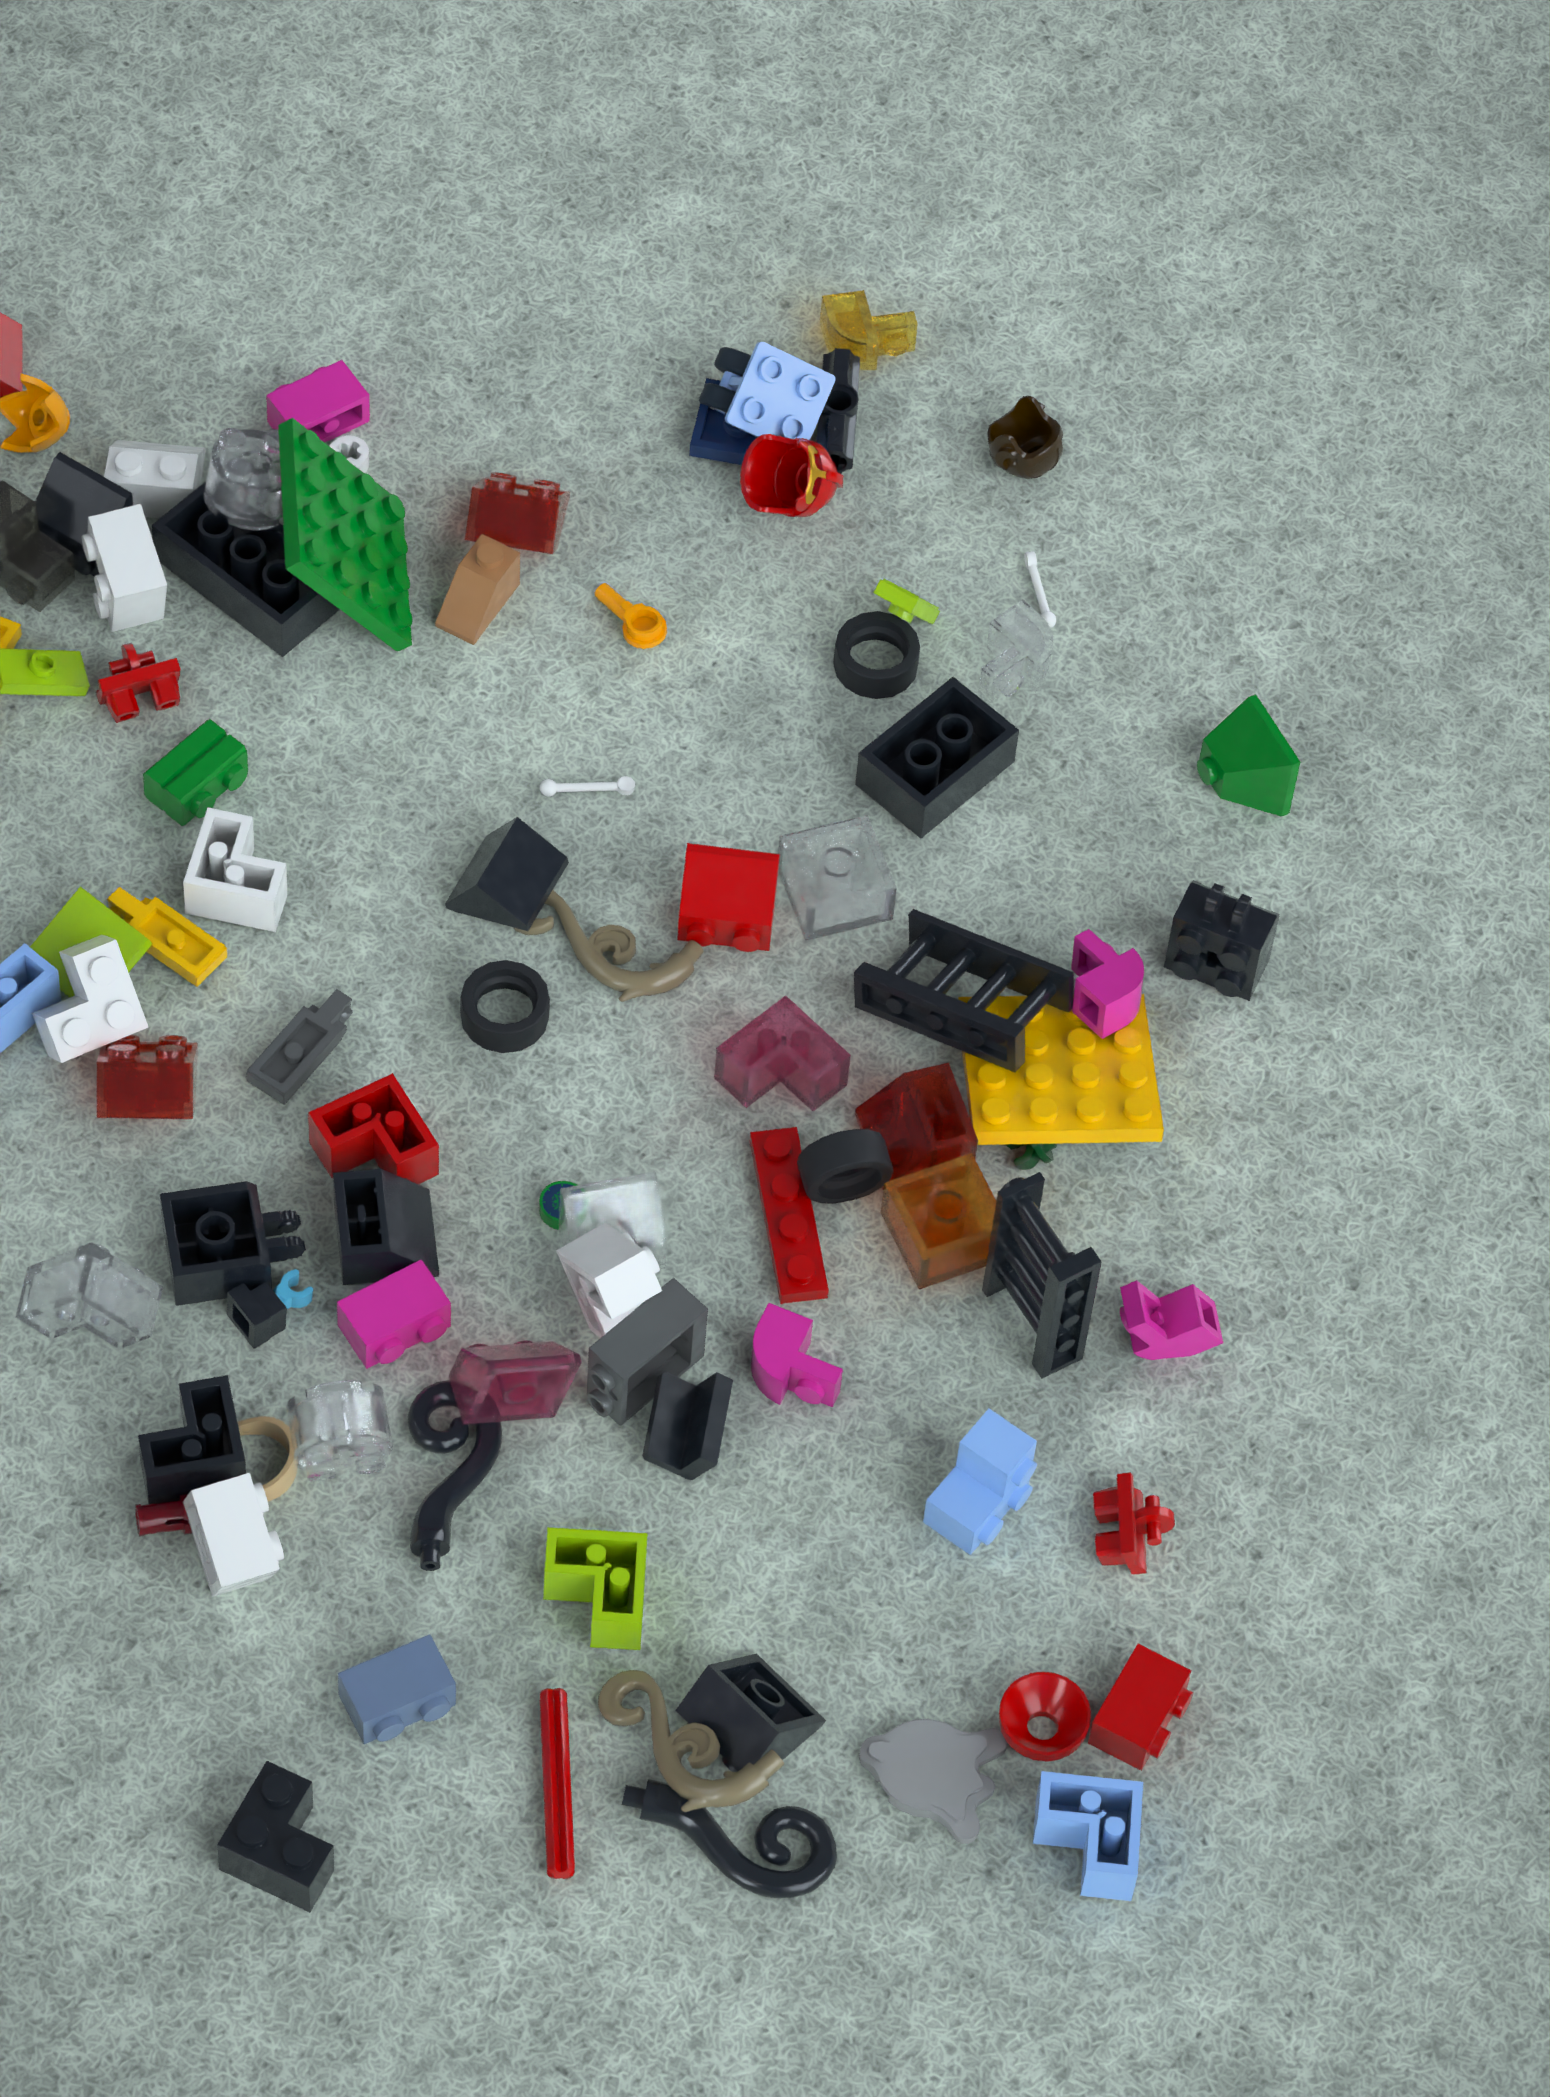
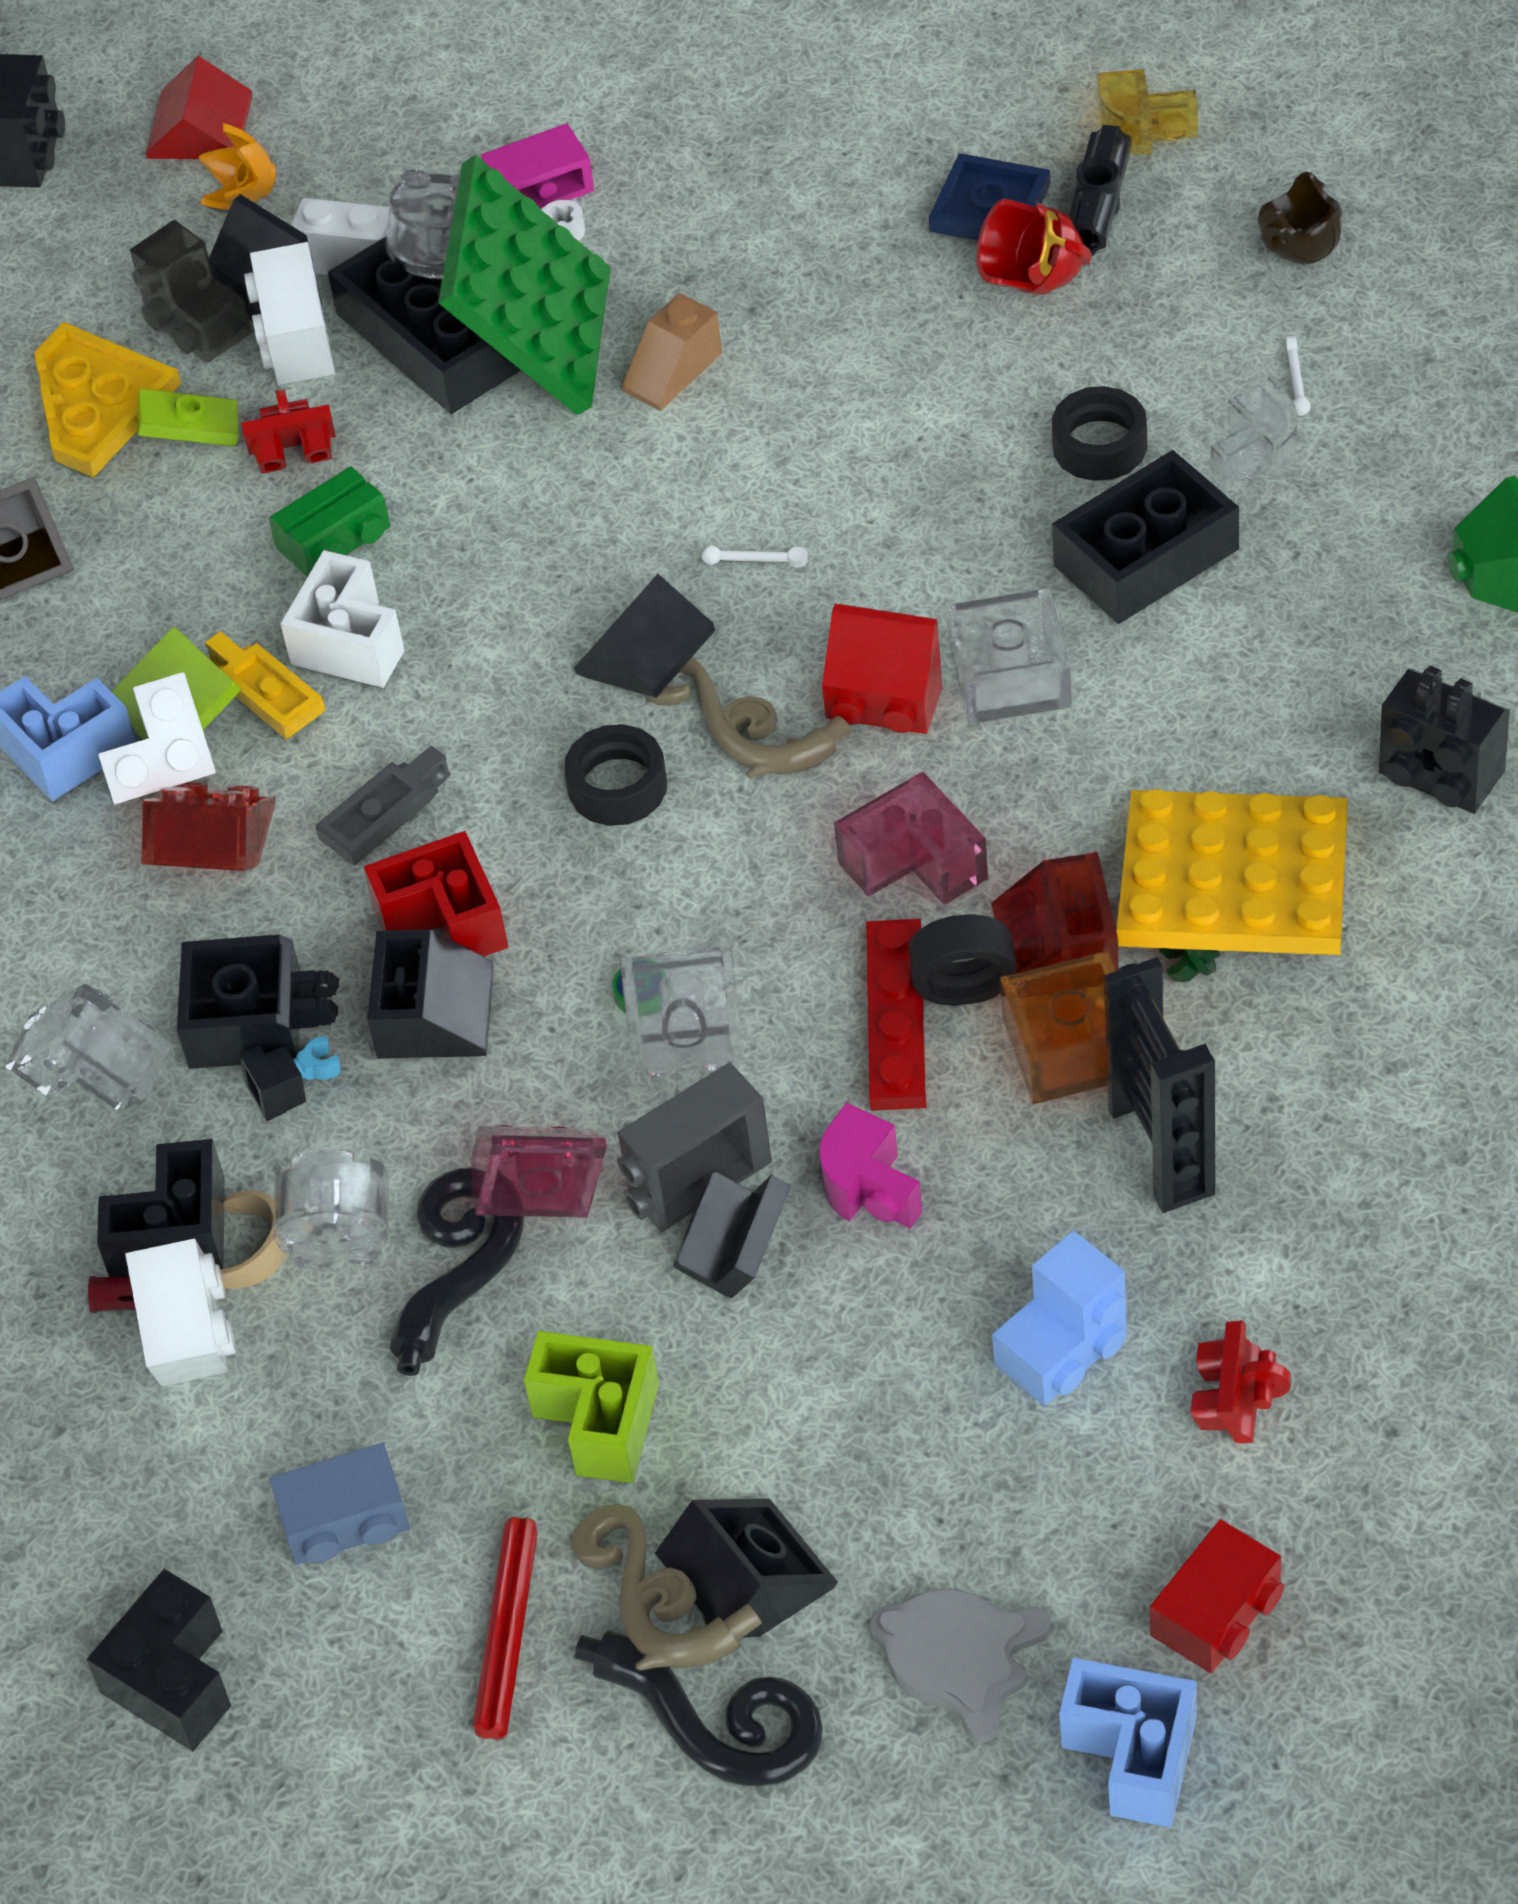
camera: 20 degrees right, 5 degrees down
(394, 1315) = (424, 1091): dark pink brick -> none
(517, 513) = (727, 281): clear red slope -> none
(609, 1275) = (661, 1053): white brick -> none
(642, 624) = (845, 393): light orange plate -> none
(768, 392) = (1020, 160): light blue plate -> none
(906, 604) = (1136, 377): lime plate -> none
(949, 1019) = (1125, 813): black fence -> none
(1050, 1697) = (1090, 1574): red piece -> none
(1107, 985) = (1299, 780): dark pink brick -> none
(1169, 1325) = (1319, 1161): dark pink brick -> none

